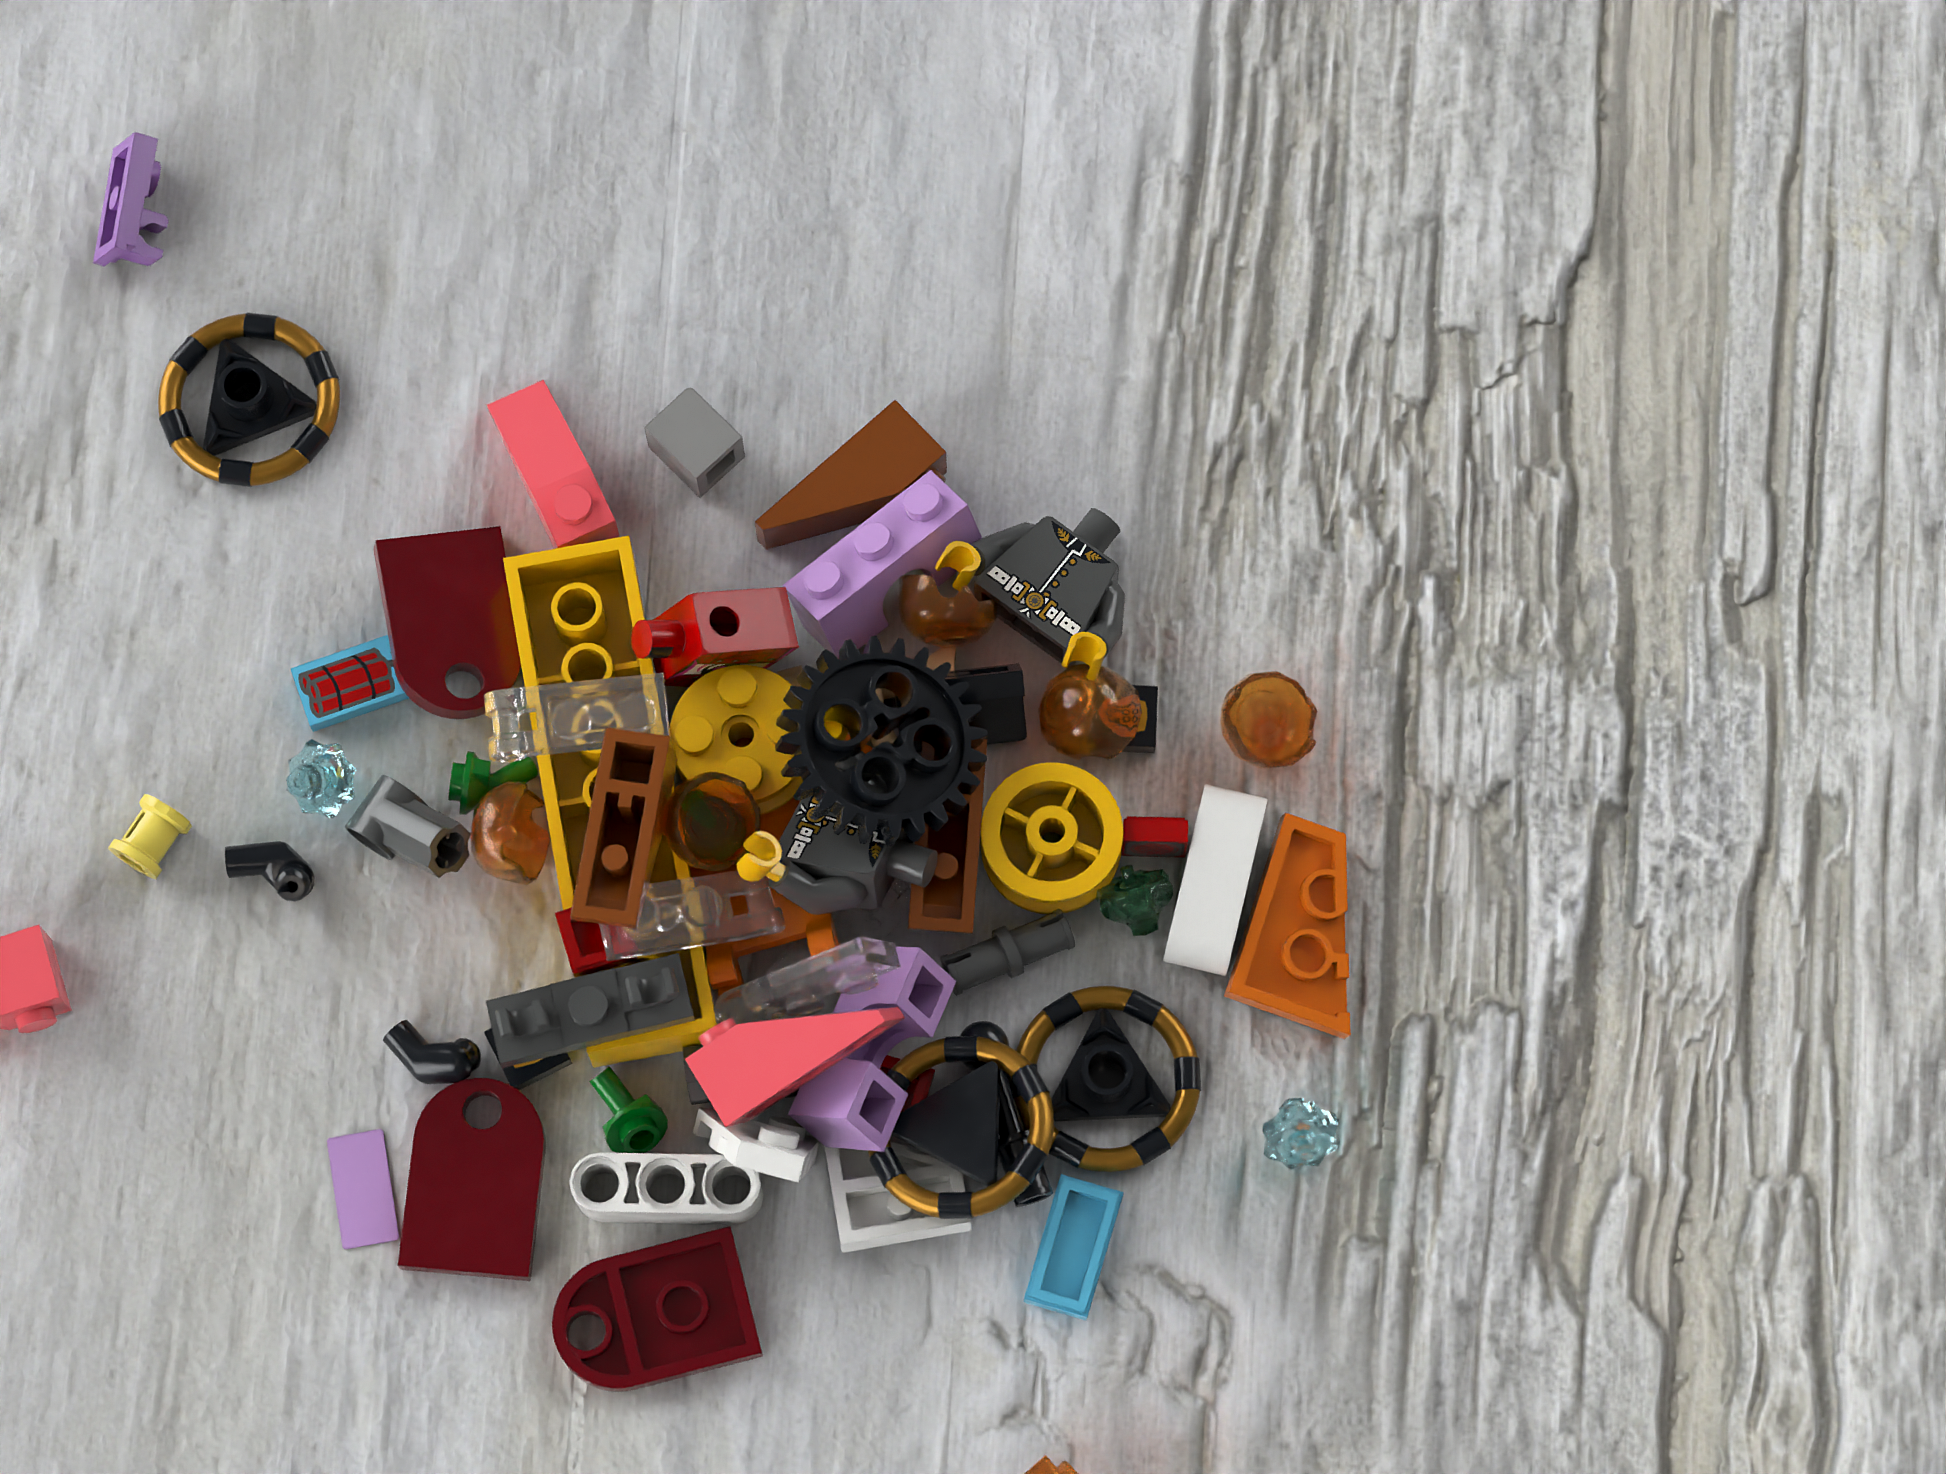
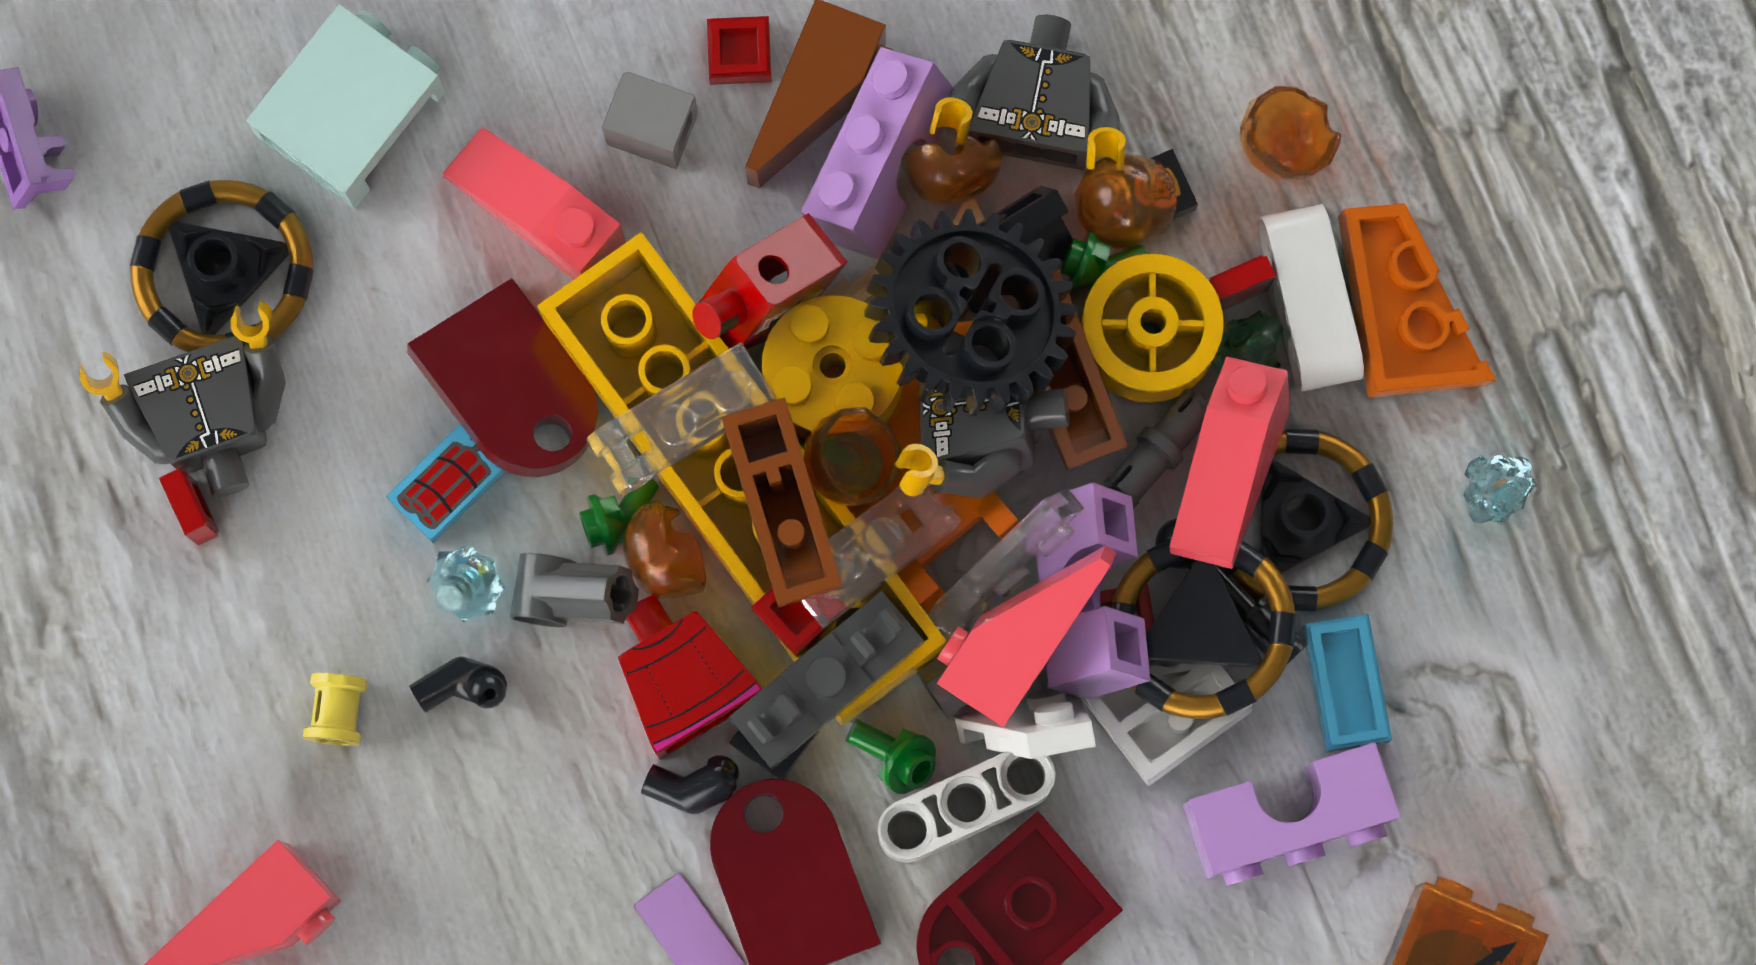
camera: 25 degrees left, 5 degrees up
(112, 596) = (189, 506): none -> red tile
(168, 510) = (200, 404): none -> dark grey torso
(431, 300) = (345, 102): none -> light aqua panel
(466, 951) = (681, 676): none -> red torso
(809, 416) = (739, 50): none -> red tile
(900, 1340) = (1348, 801): none -> lavender arch
(1030, 748) = (1090, 259): none -> green plate
(1061, 989) = (1231, 461): none -> coral slope

